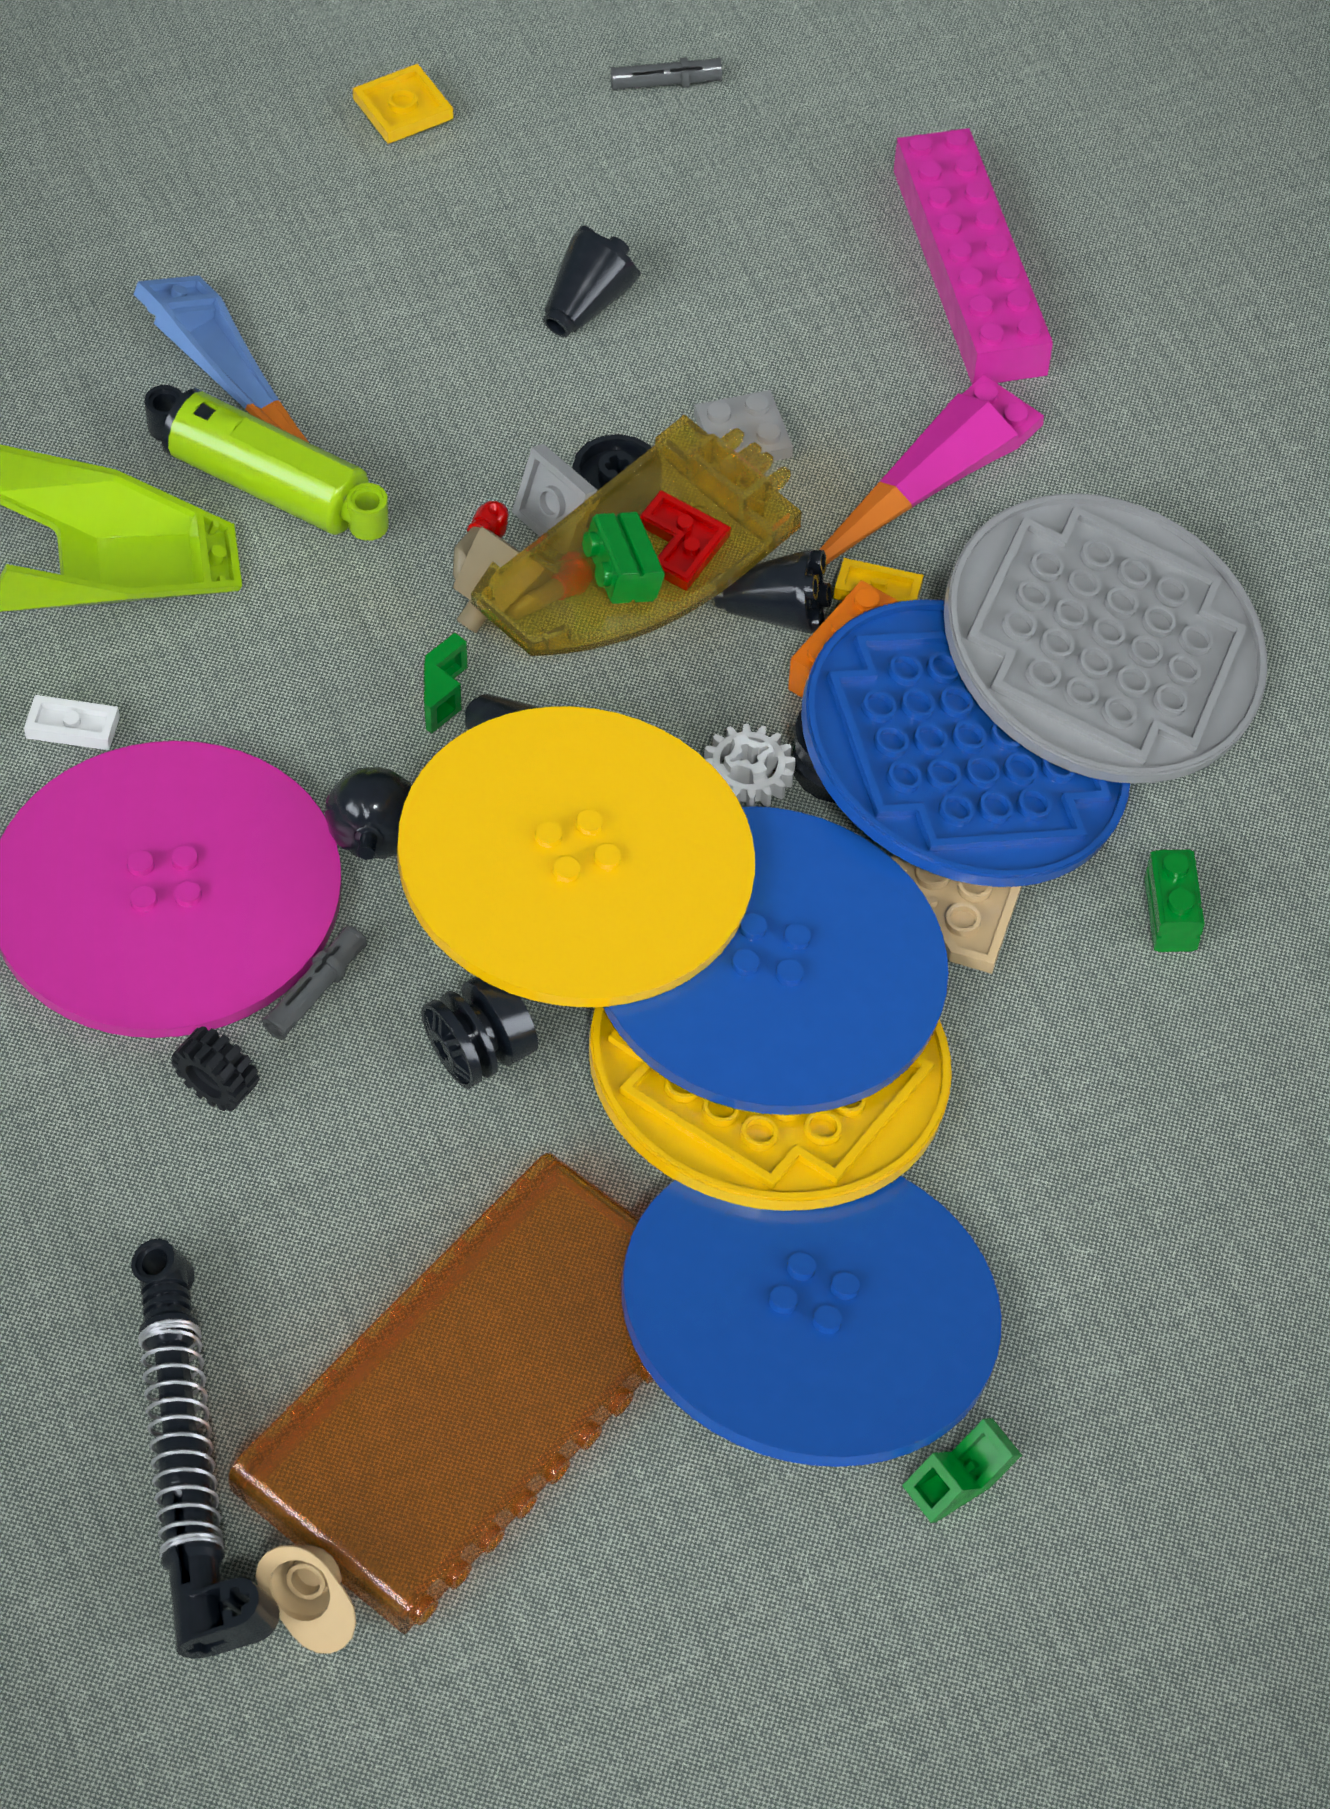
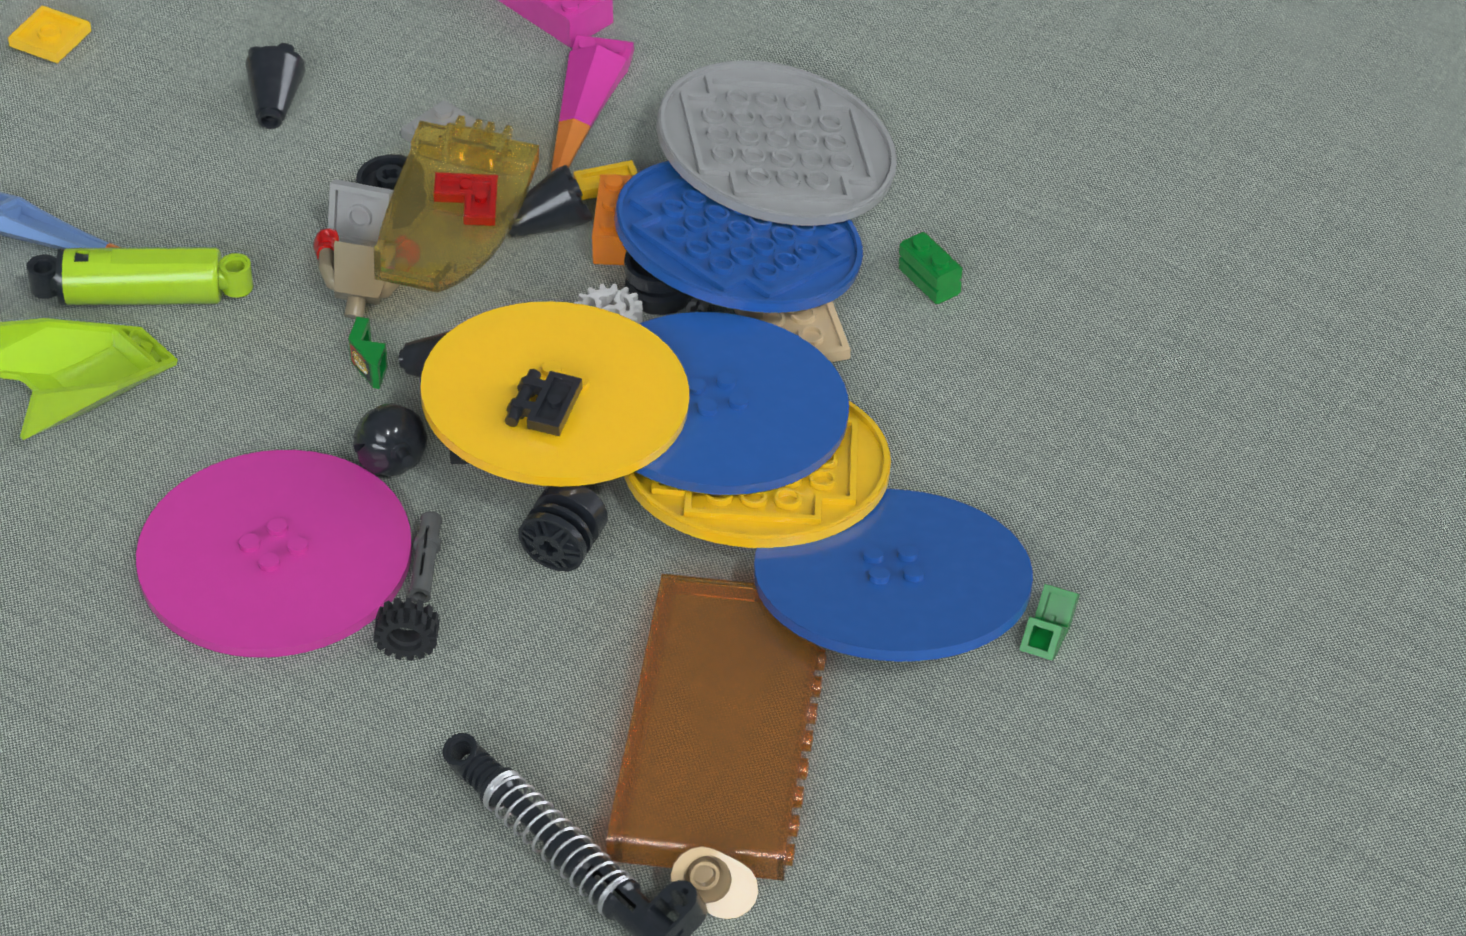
camera: 30 degrees left, 10 degrees down
(71, 722) = (129, 486): white plate -> none
(542, 875) = (553, 405): none -> black plate
(623, 557) = (446, 217): green brick -> none

